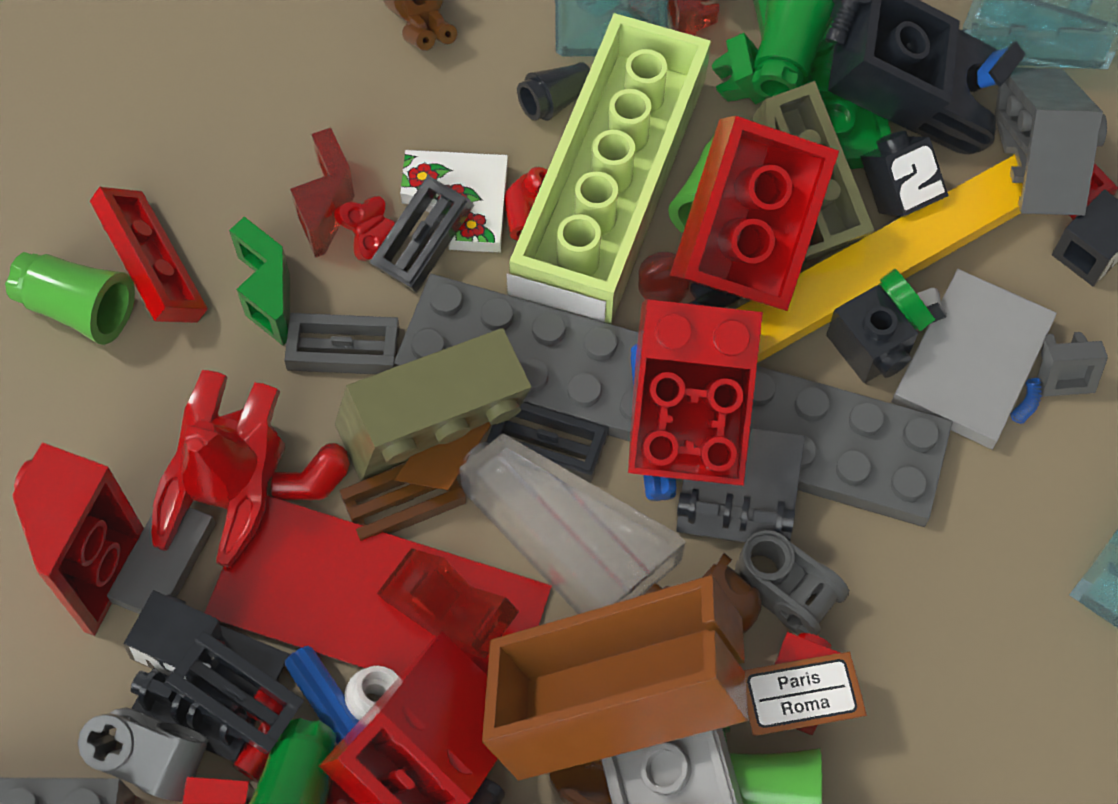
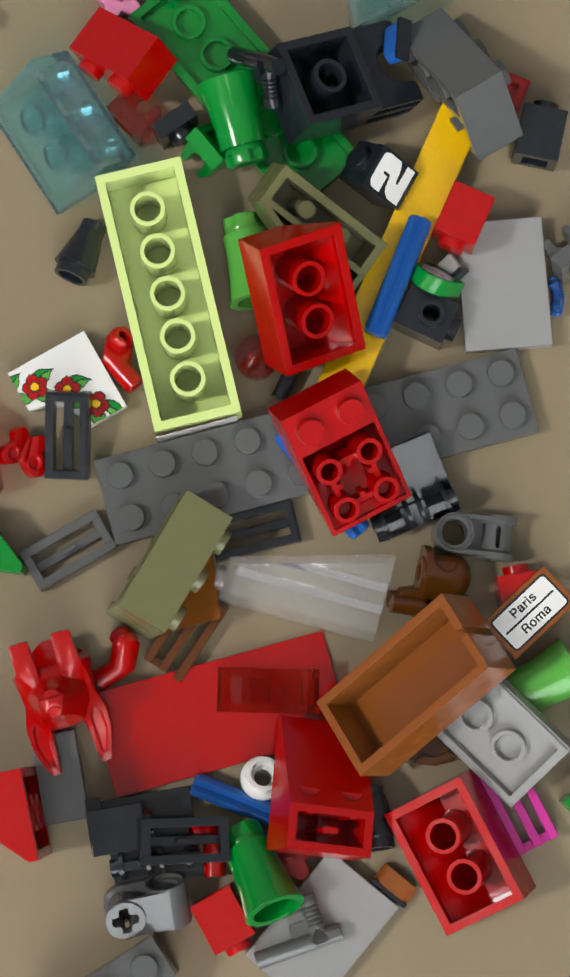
camera: 30 degrees left, 20 degrees up
(723, 25) = (175, 126): none -> black plate
(864, 271) = (398, 276): none -> blue axle
(971, 257) = (462, 218): none -> red brick

